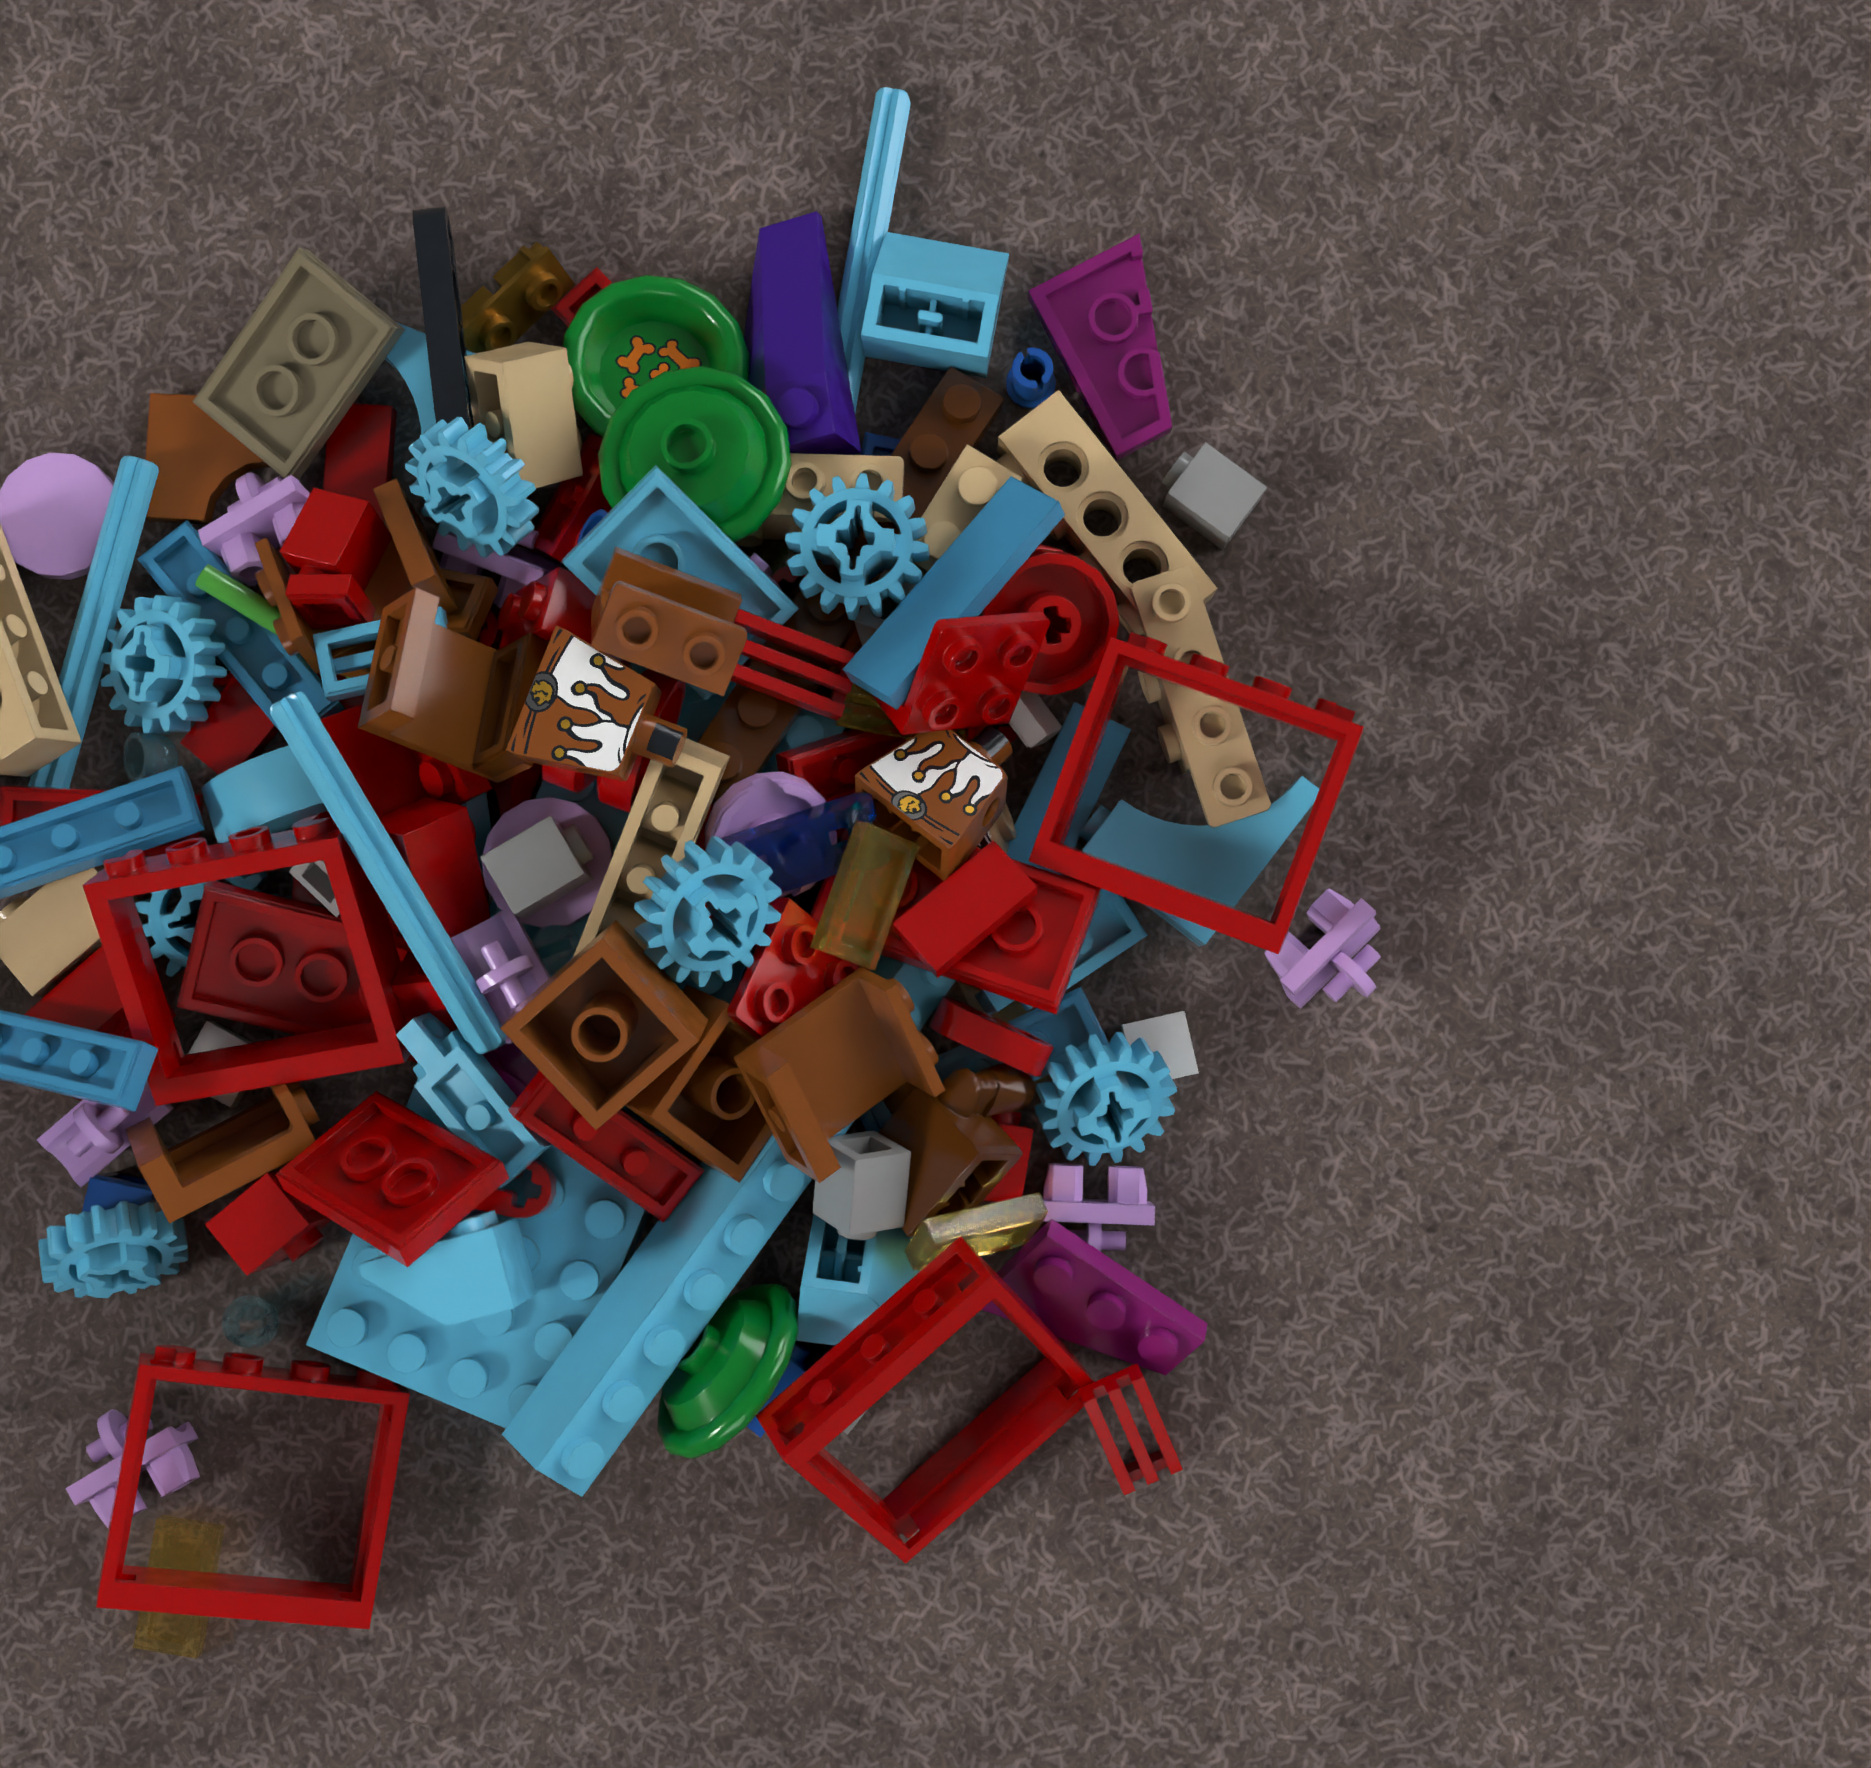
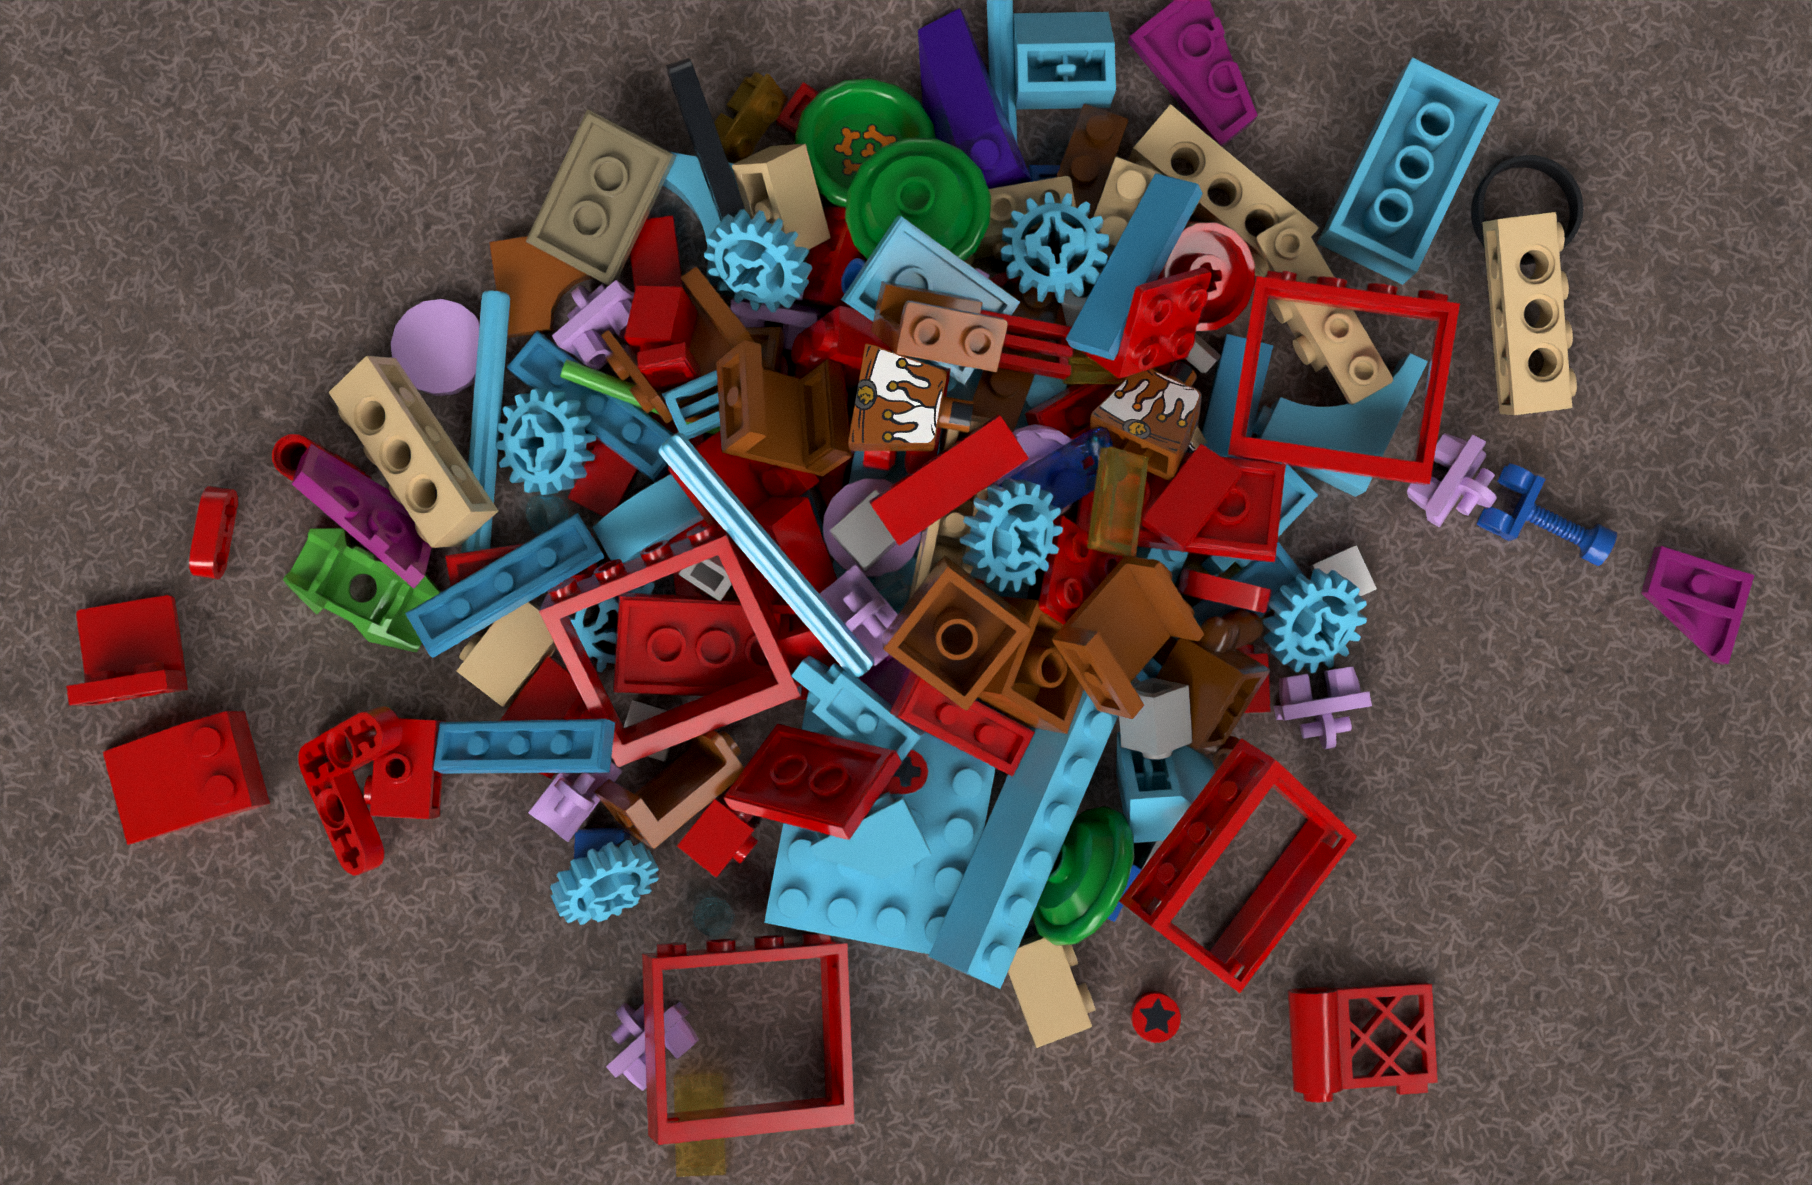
camera: 20 degrees left, 0 degrees up
(637, 823) = (949, 479): none -> red tile
(659, 1508) = (1048, 990): none -> tan brick
(794, 1569) = (1155, 1017): none -> red tile
(984, 1228) = (1257, 728): clear yellow tile -> none
(1003, 1658) = (1324, 1046): none -> red piece
(1027, 392) = (1141, 110): blue pin -> none
(1099, 1302) = (1344, 771): magenta wing -> none
(1145, 1464) = (1399, 884): red tile -> none
(1211, 494) = (1297, 160): light grey brick -> none
(1351, 538) = (1408, 171): none -> medium azure brick
(1450, 723) = (1509, 294): none -> tan brick
(1494, 1070) = (1594, 543): none -> blue bar
(1540, 569) = (1547, 166): none -> black tyre
(1617, 1172) = (1699, 599): none -> magenta wing

